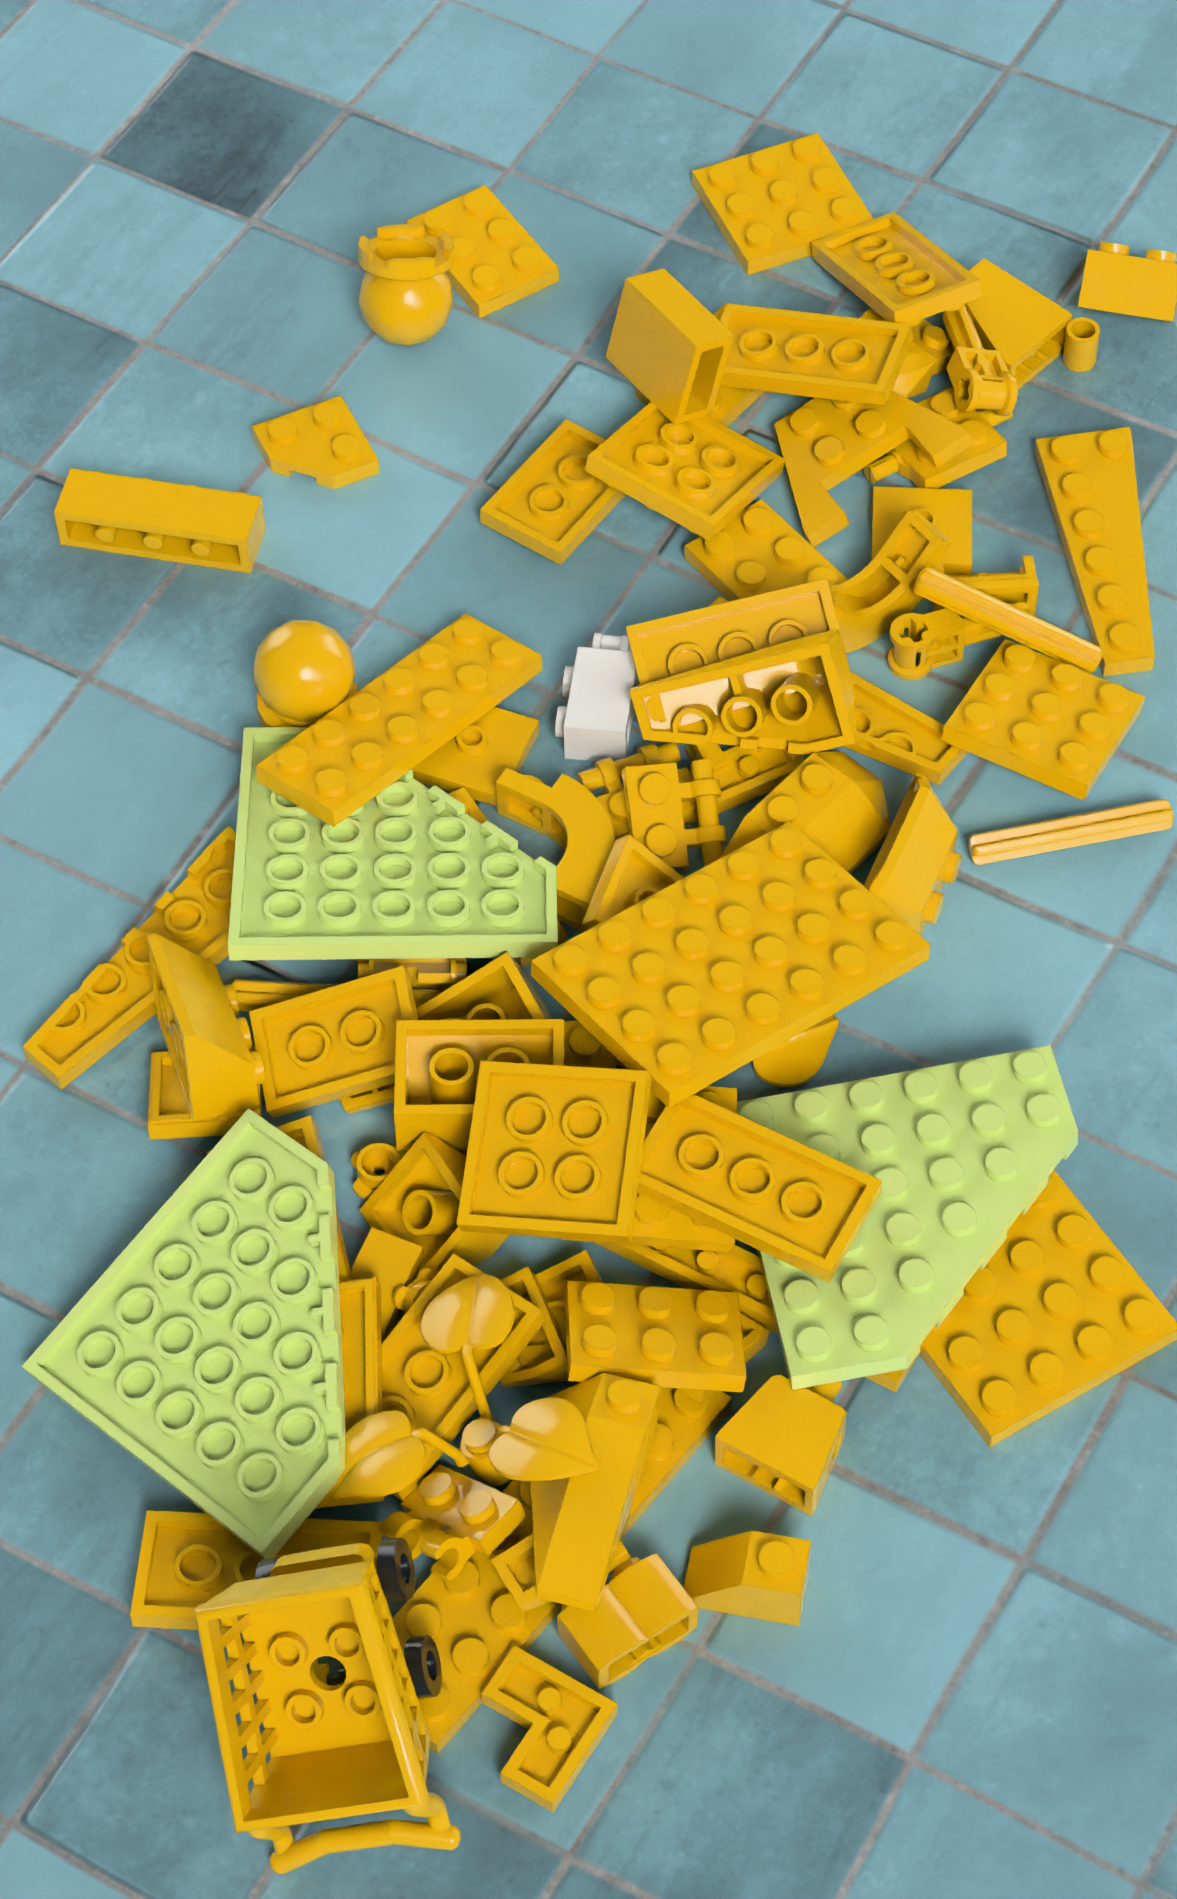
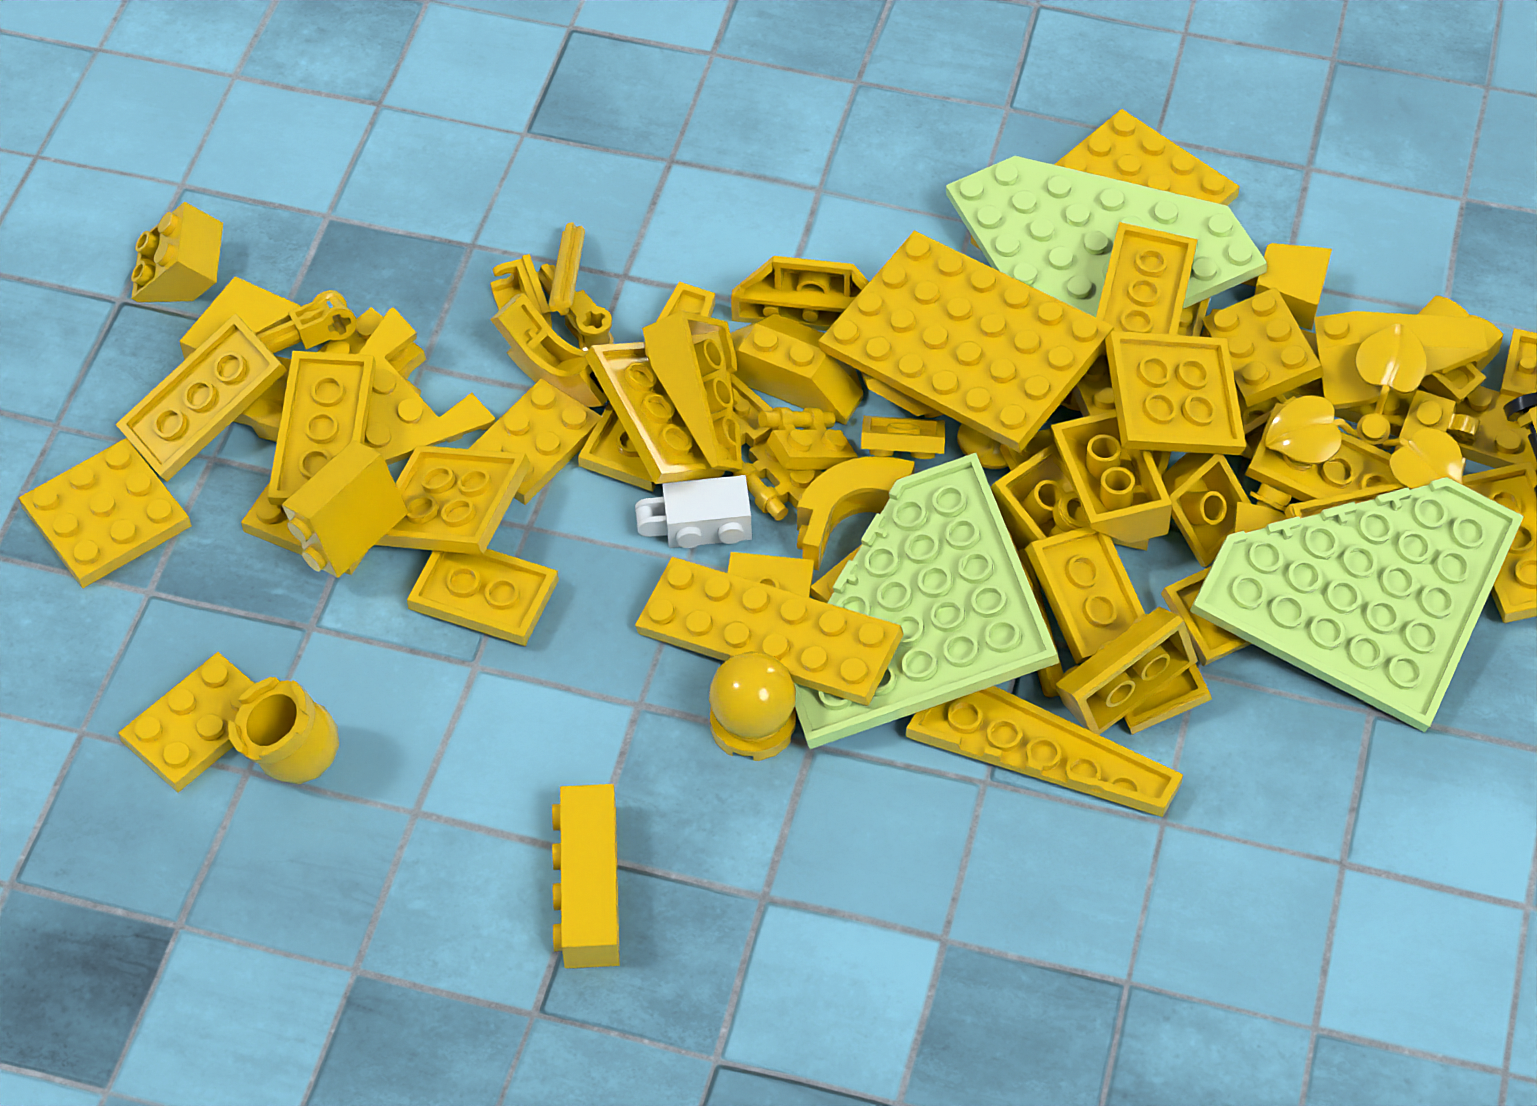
camera: 105 degrees left, 0 degrees up
(317, 443) = (461, 788): yellow plate -> none
(370, 1159) = (1173, 548): yellow plate -> none
(751, 1576) = (1394, 275): yellow slope -> none
(945, 508) = (465, 355): yellow plate -> none
(1043, 719) = (645, 245): yellow plate -> none
(1070, 831) = (733, 216): yellow axle -> none
(1081, 344) = (251, 272): yellow hinge -> none
(1099, 524) = (429, 251): yellow wing -> none

